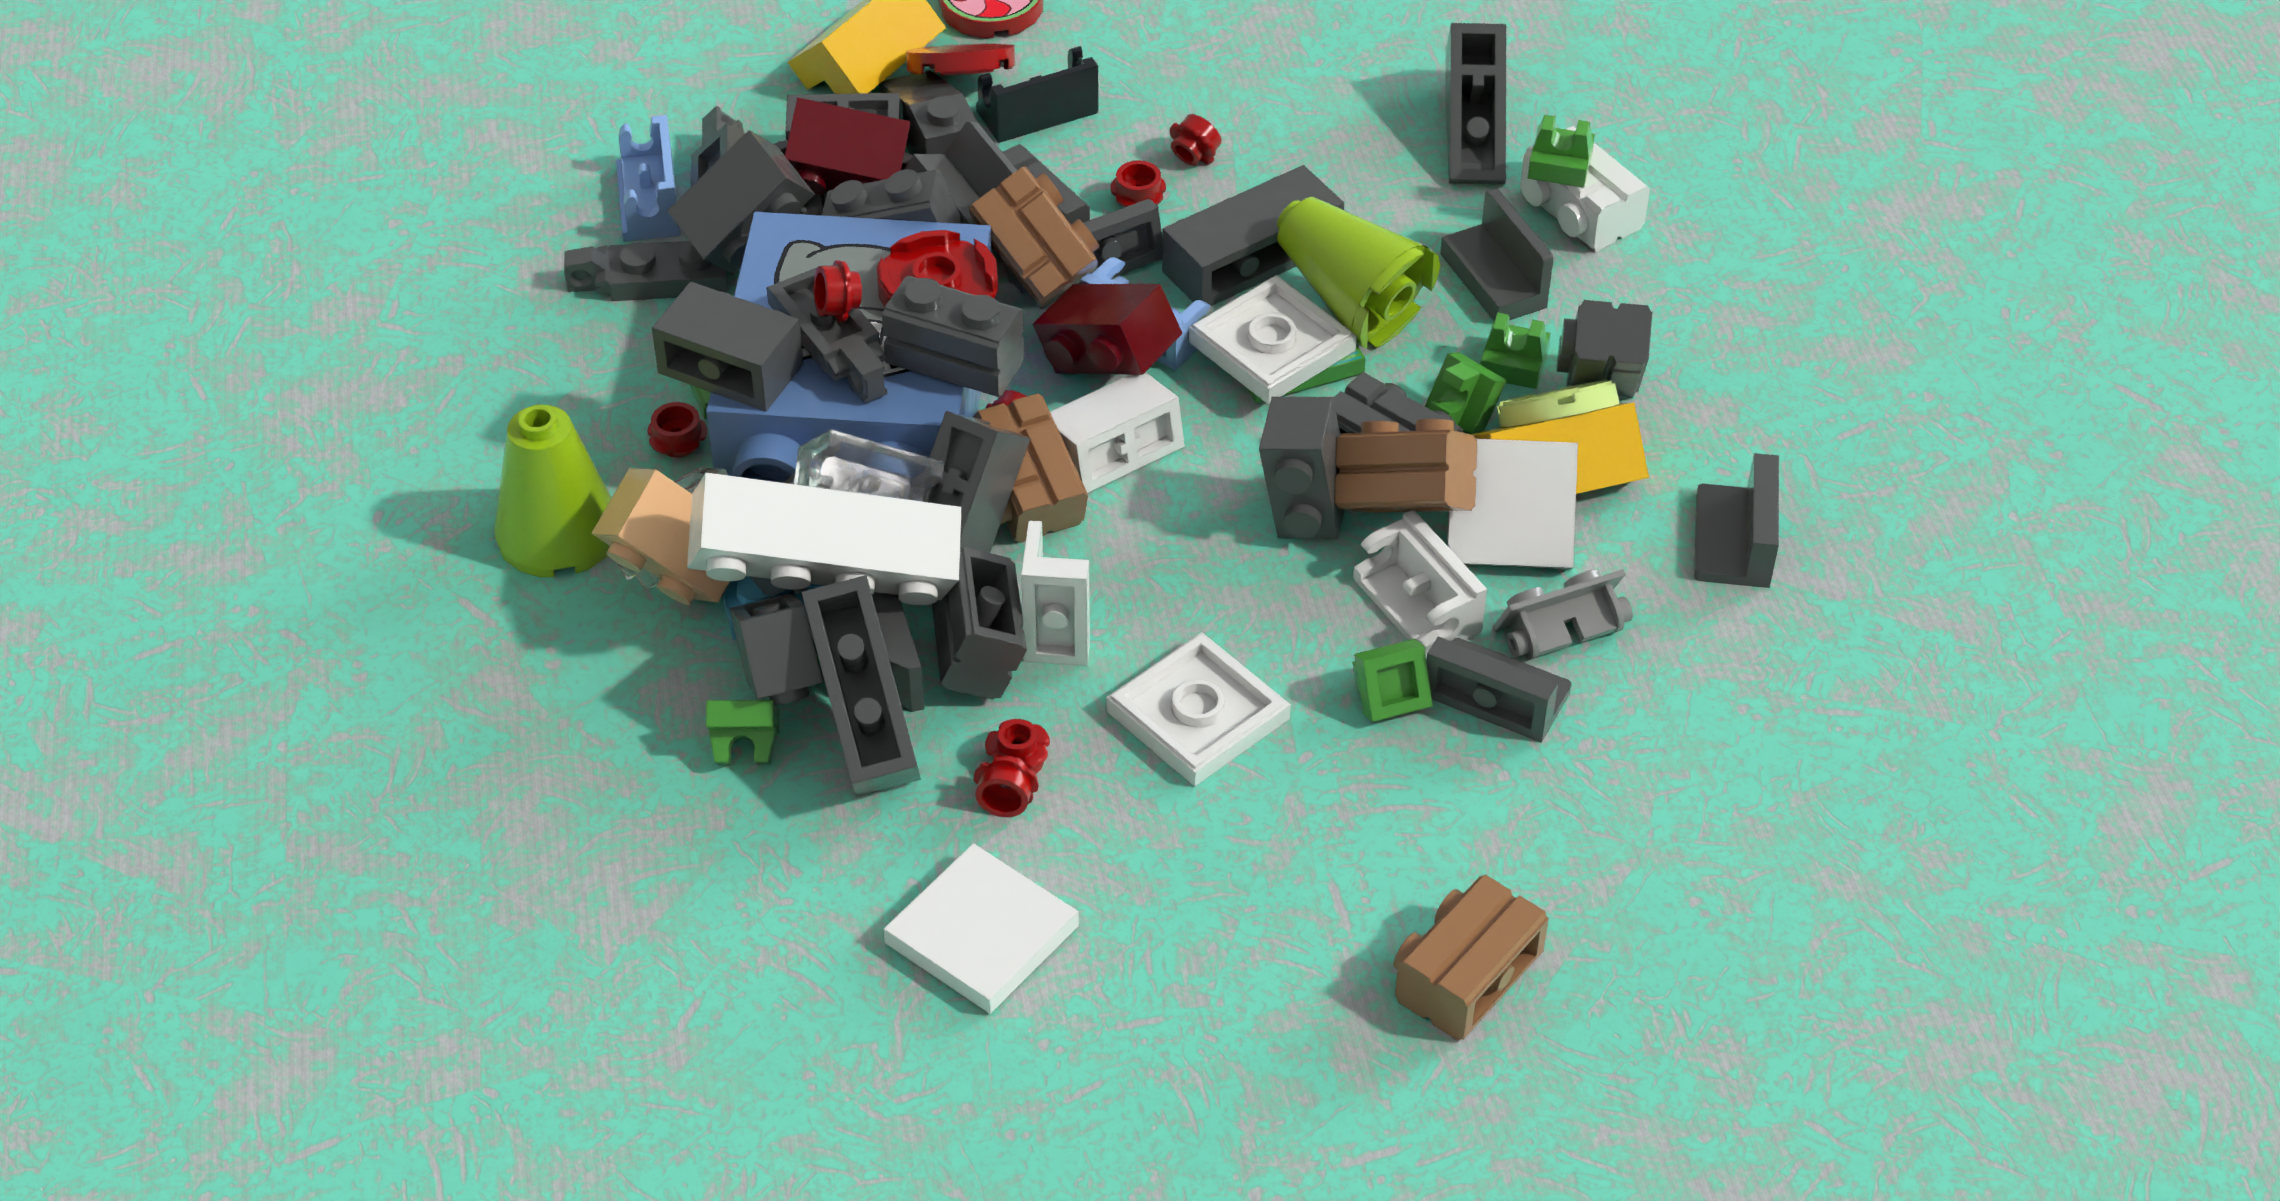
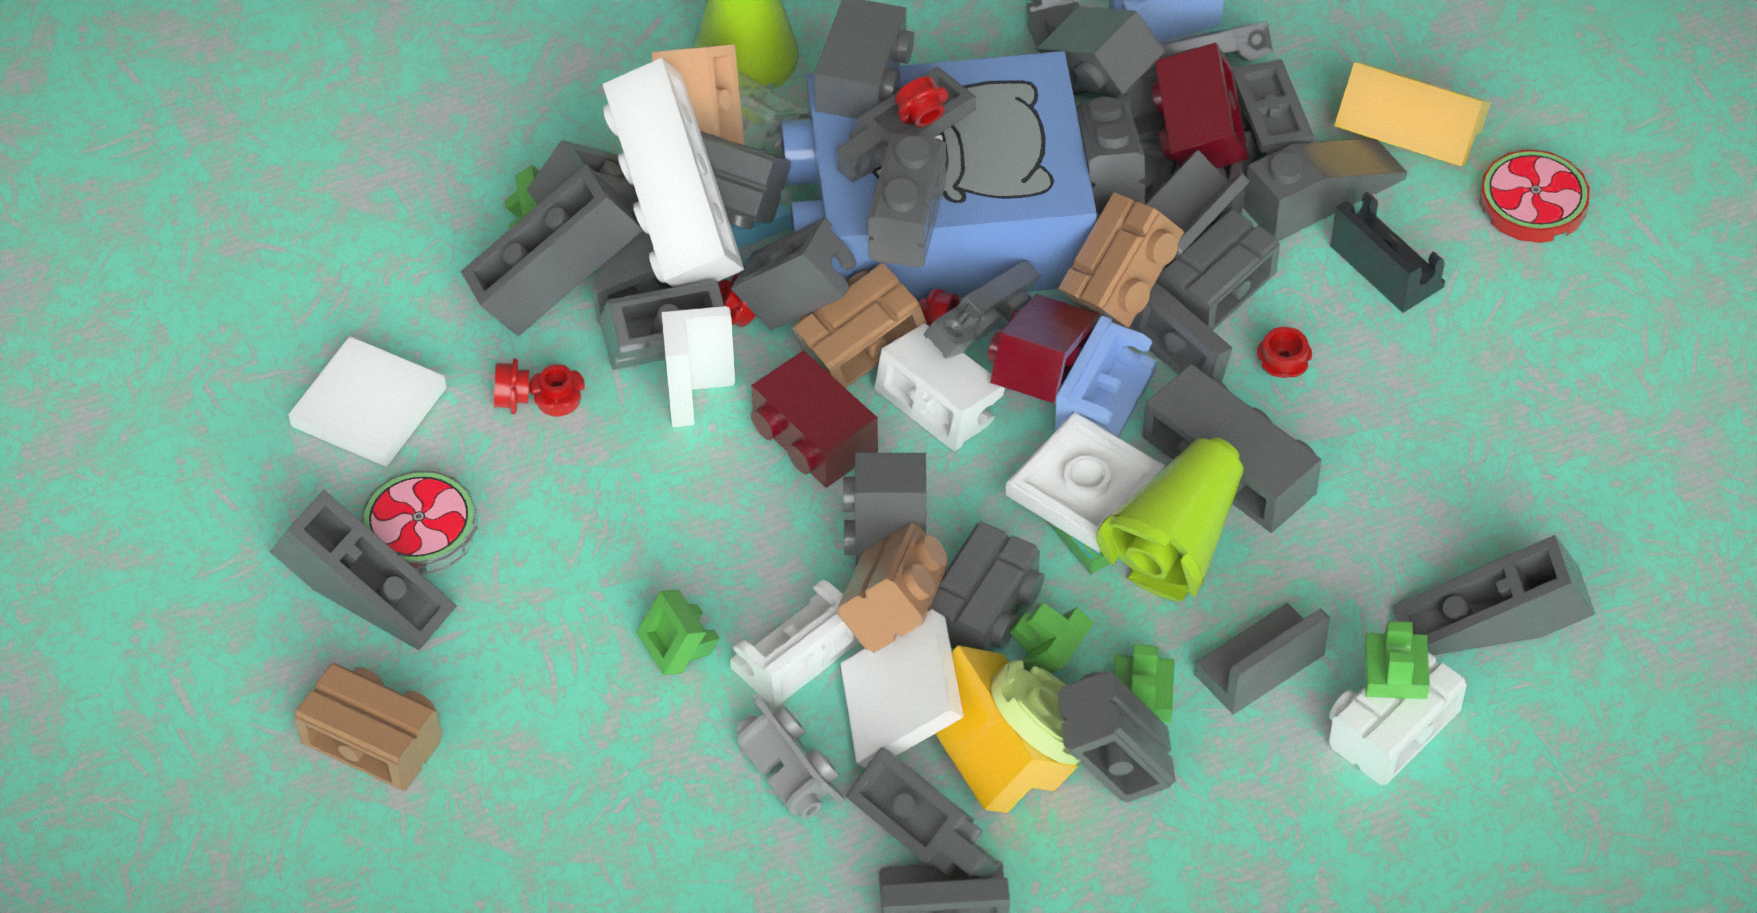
camera: 80 degrees right, 5 degrees up
(865, 467) = (747, 190): clear hinge -> none
(939, 257) = (1003, 186): red tile -> none
(961, 58) = (1405, 176): red tile -> none
(1060, 368) = (982, 310): none -> dark grey hinge
(1134, 528) = (813, 418): none -> dark red brick
(1177, 895) = (423, 518): none -> tile
(1195, 140) = (1366, 384): red plate -> none
(1198, 708) = (629, 507): white tile -> none
(1246, 947) = (361, 572): none -> dark grey slope
(1495, 687) = (694, 718): dark grey panel -> none
(1655, 519) = (920, 817): none -> dark grey hinge

